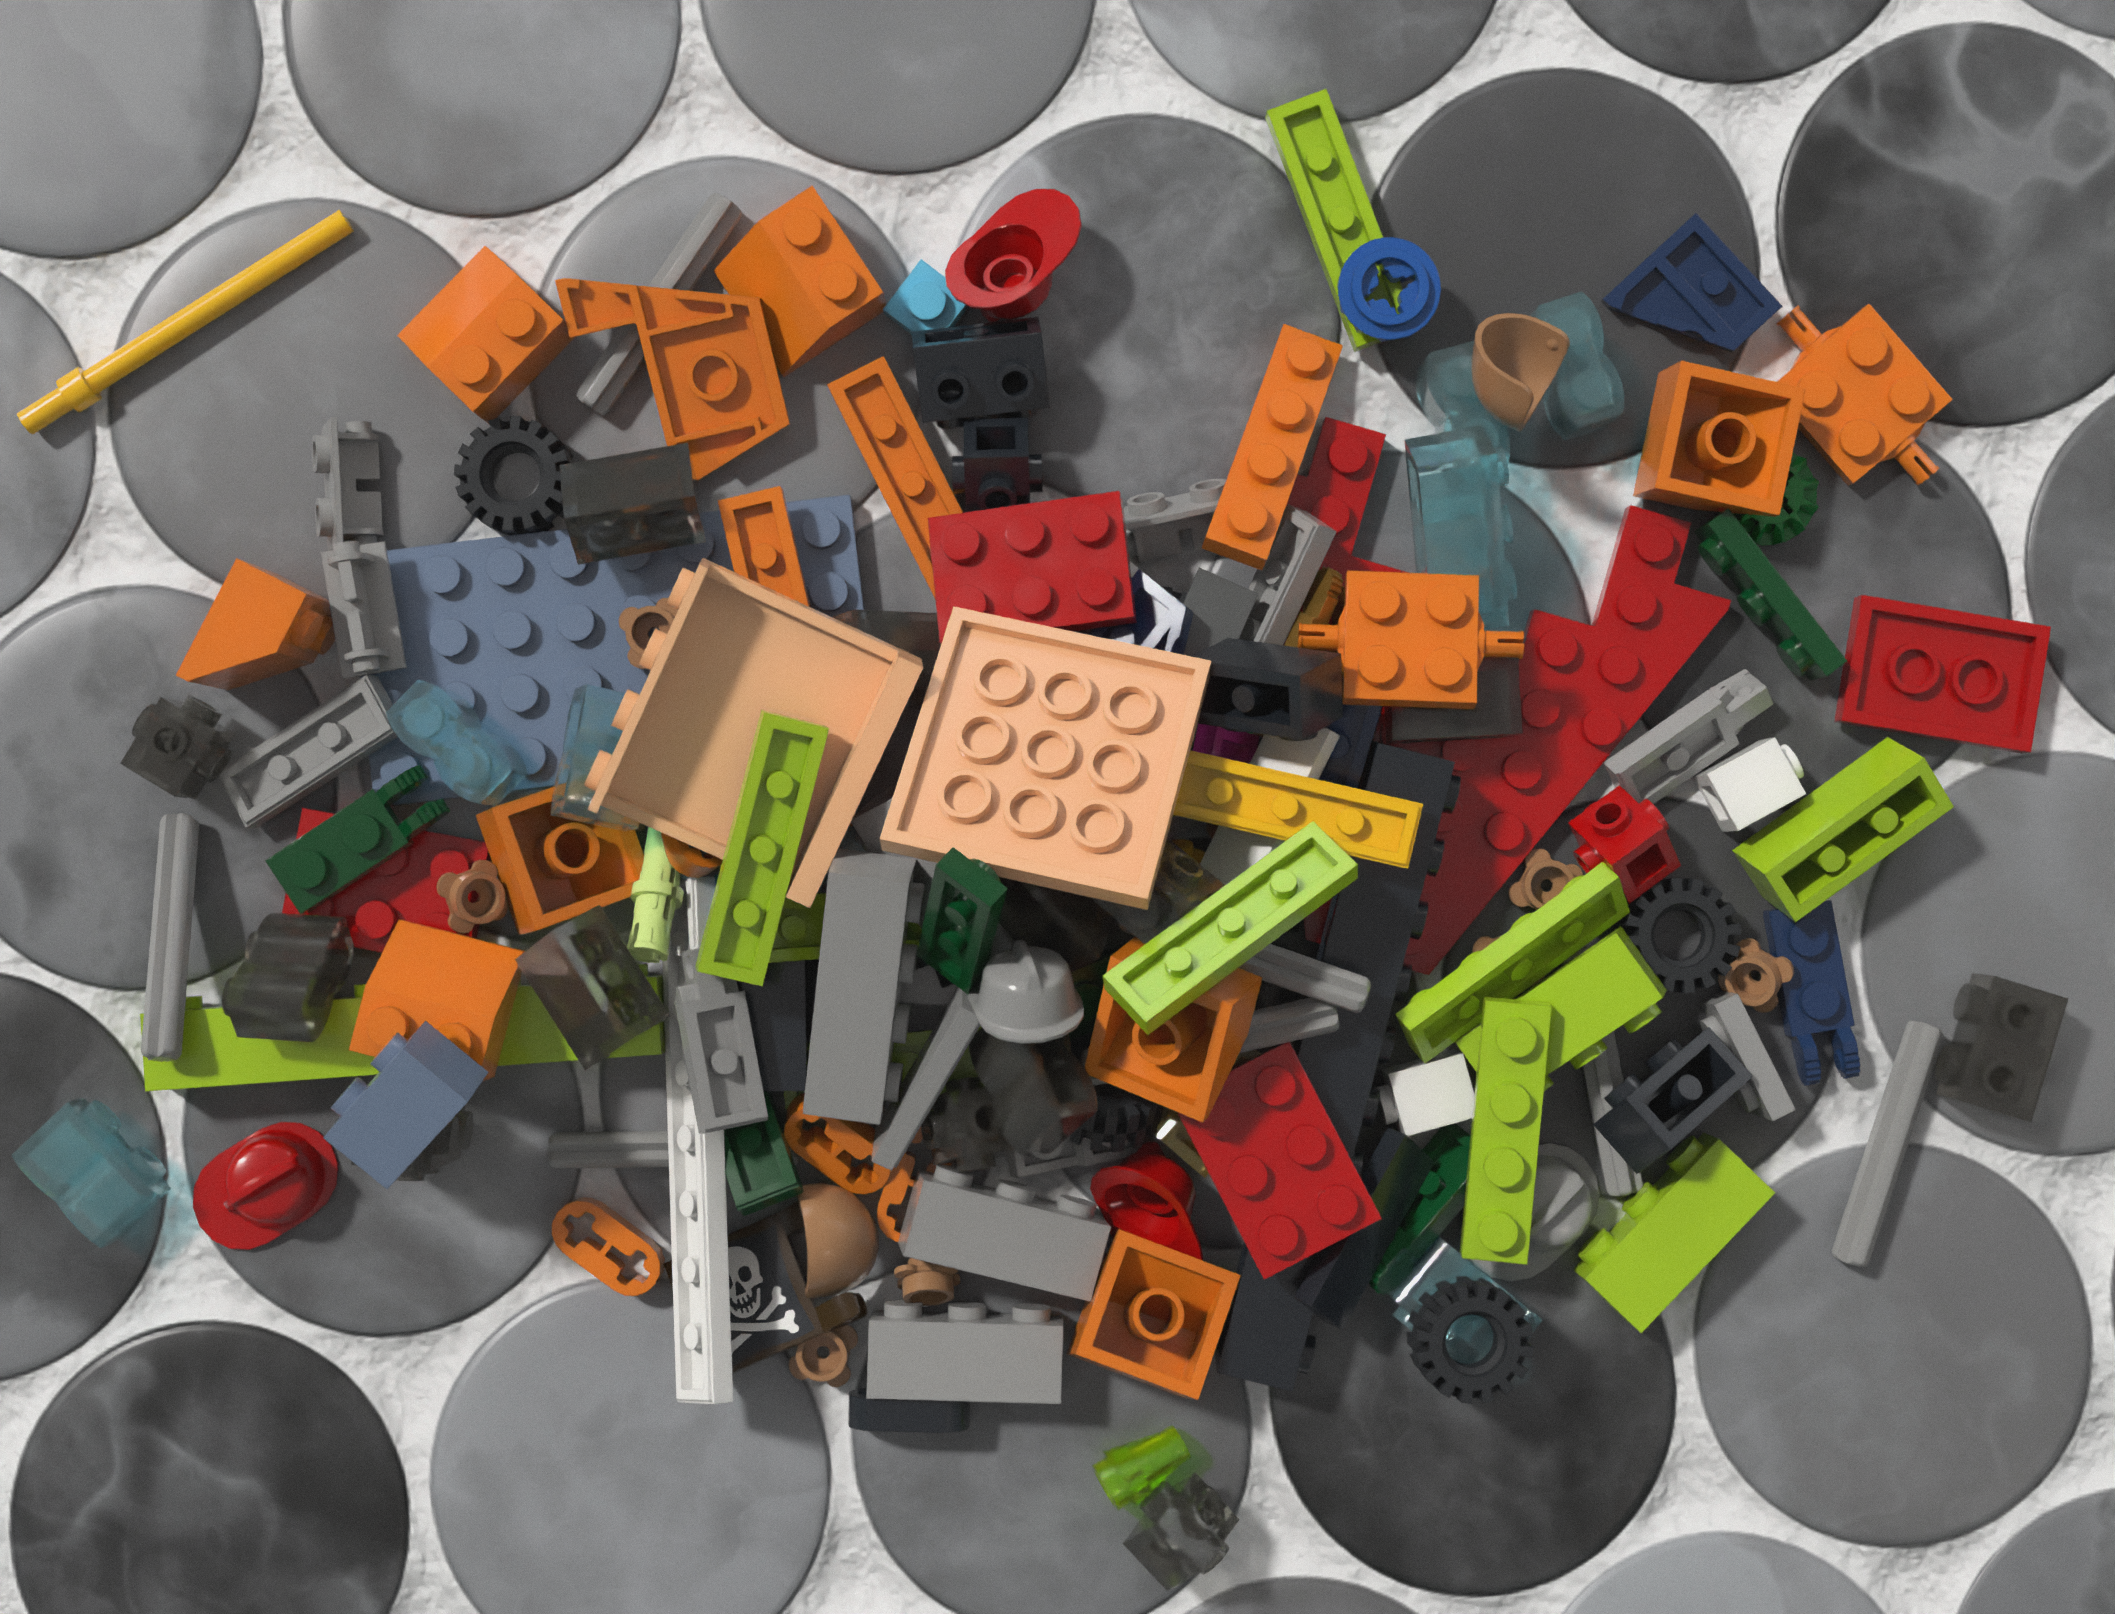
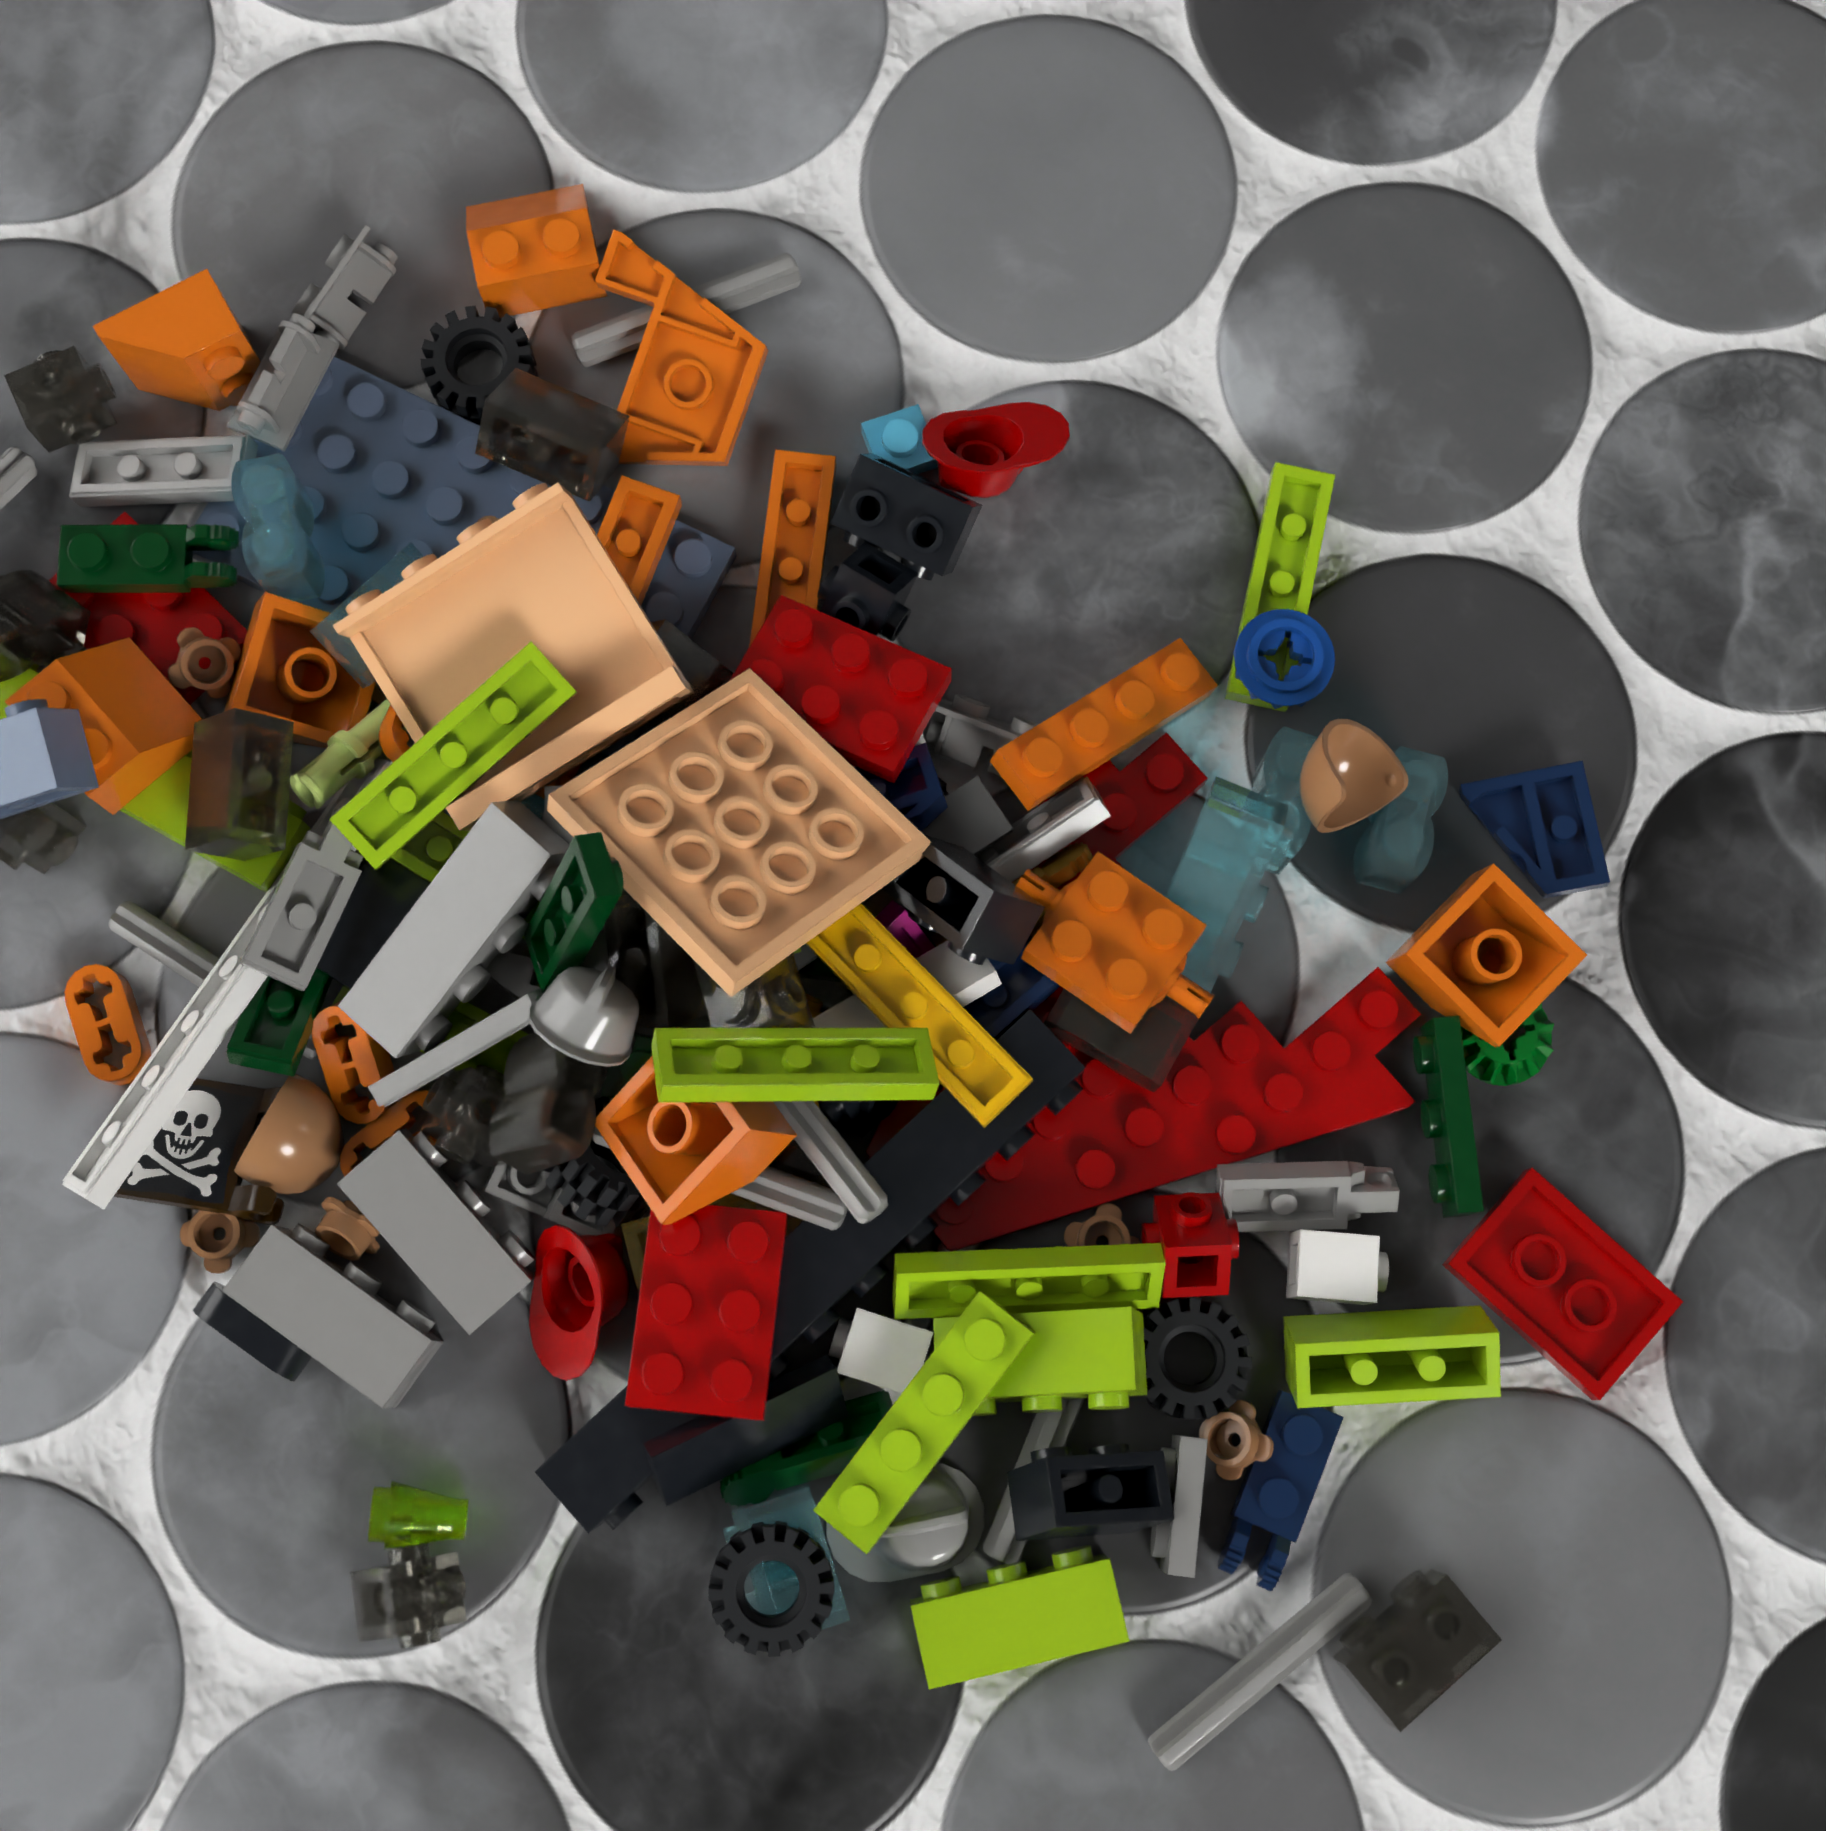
camera: 25 degrees right, 10 degrees down
(82, 388) = (196, 94): yellow bar -> none
(806, 279) = (813, 361): orange slope -> none
(1154, 1315) = (515, 1384): orange slope -> none
(1862, 394) = (1634, 1003): orange plate -> none

